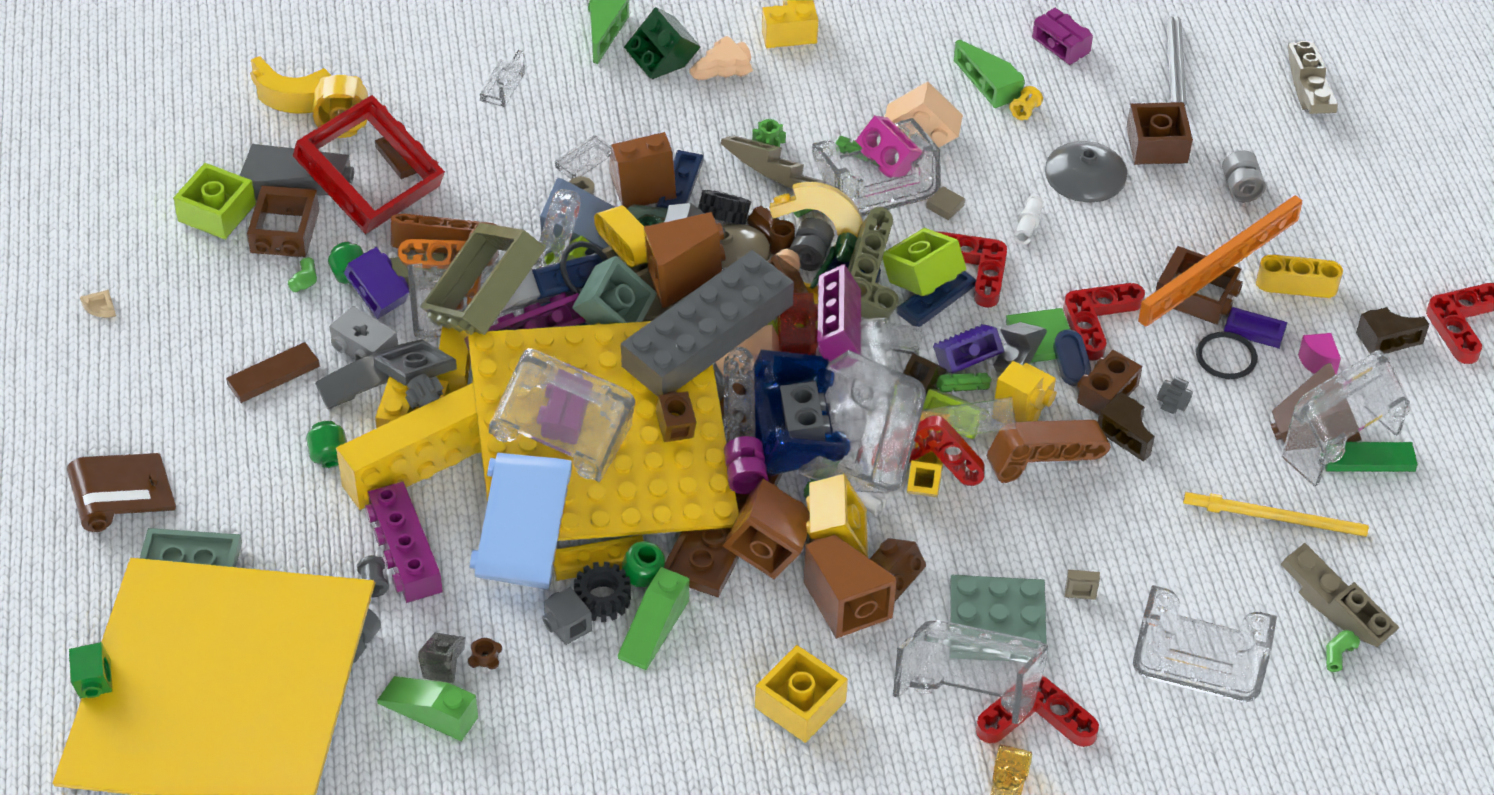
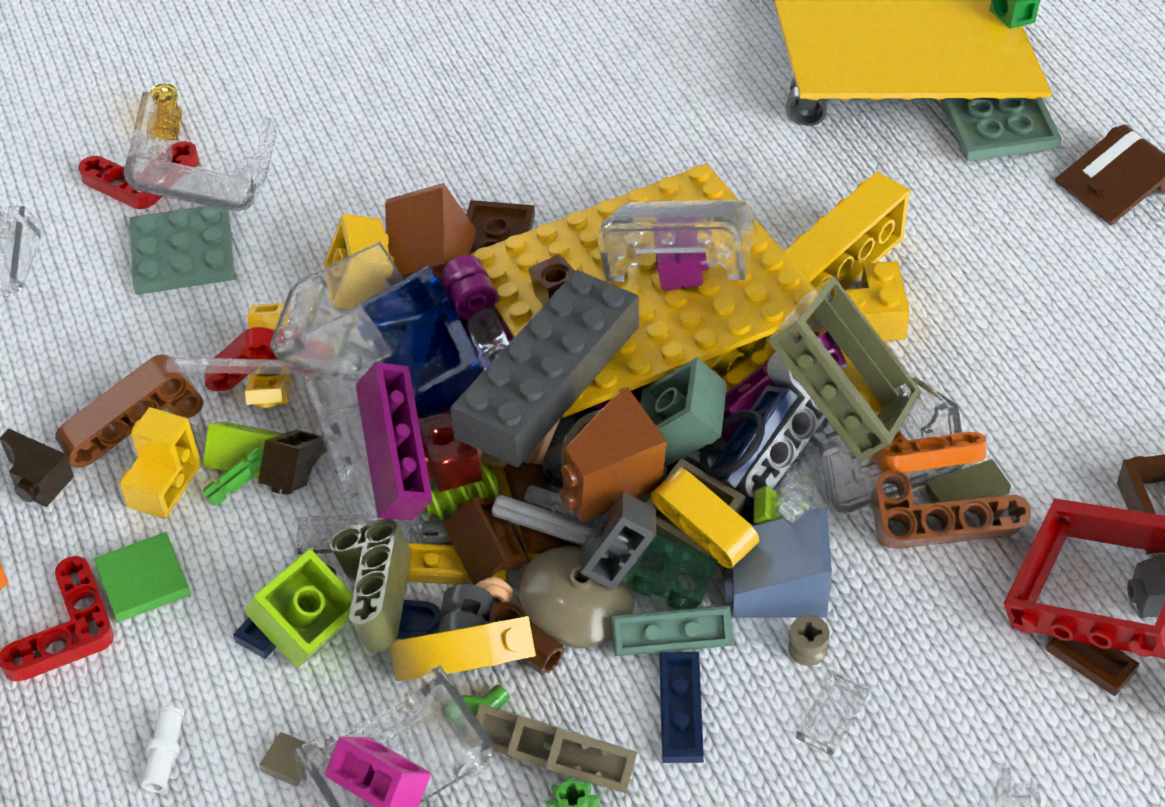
camera: 170 degrees right, 0 degrees up
(272, 372) = (1052, 326): reddish brown tile -> none
(304, 278) = (1093, 442): bright green arm -> none
(323, 441) = (939, 252): green head -> none
(340, 257) = (1051, 461): green head -> none
(353, 379) = (935, 331): dark grey slope -> none
(360, 334) = (973, 373): light grey brick -> none
(372, 569) = (821, 153): dark grey bush -> none
(377, 282) = (1007, 423): dark purple brick -> none
(404, 542) = (796, 175): magenta brick -> none
(413, 361) = (894, 314): dark grey tile -> none
(423, 391) = (851, 266): dark grey gear -> none
(432, 704) = (701, 63): bright green slope -> none
(440, 656) = (715, 92): clear smoke slope -> none
(481, 647) = (678, 116): reddish brown plate -> none
(522, 519) = (681, 169): light blue windscreen -> none
(567, 616) = (612, 153): dark grey brick -> none
(604, 577) = (584, 171): black tyre -> none
(642, 563) = (552, 198): green head -> none
(643, 170) = (734, 665): dark orange slope -> none
(655, 618) = (525, 172): bright green slope -> none
(725, 206) = (593, 664): black tyre -> none
(801, 693) = (365, 125): yellow brick -> none
(803, 411) = (416, 343): dark grey brick -> none
(842, 251) = (416, 614): dark green plant -> none
(847, 586) = (321, 197): dark orange slope -> none
(900, 559) = (301, 258): reddish brown bracket -> none
(968, 348) = (233, 510): dark purple brick -> none
(986, 262) = (223, 671): red beam -> none
(1020, 345) = (166, 532): flat silver slope -> none
(1071, 356) = (100, 542): dark blue tile -> none
(1082, 584) = (92, 284): dark tan tile -> none
(1109, 378) = (52, 515): reddish brown brick -> none

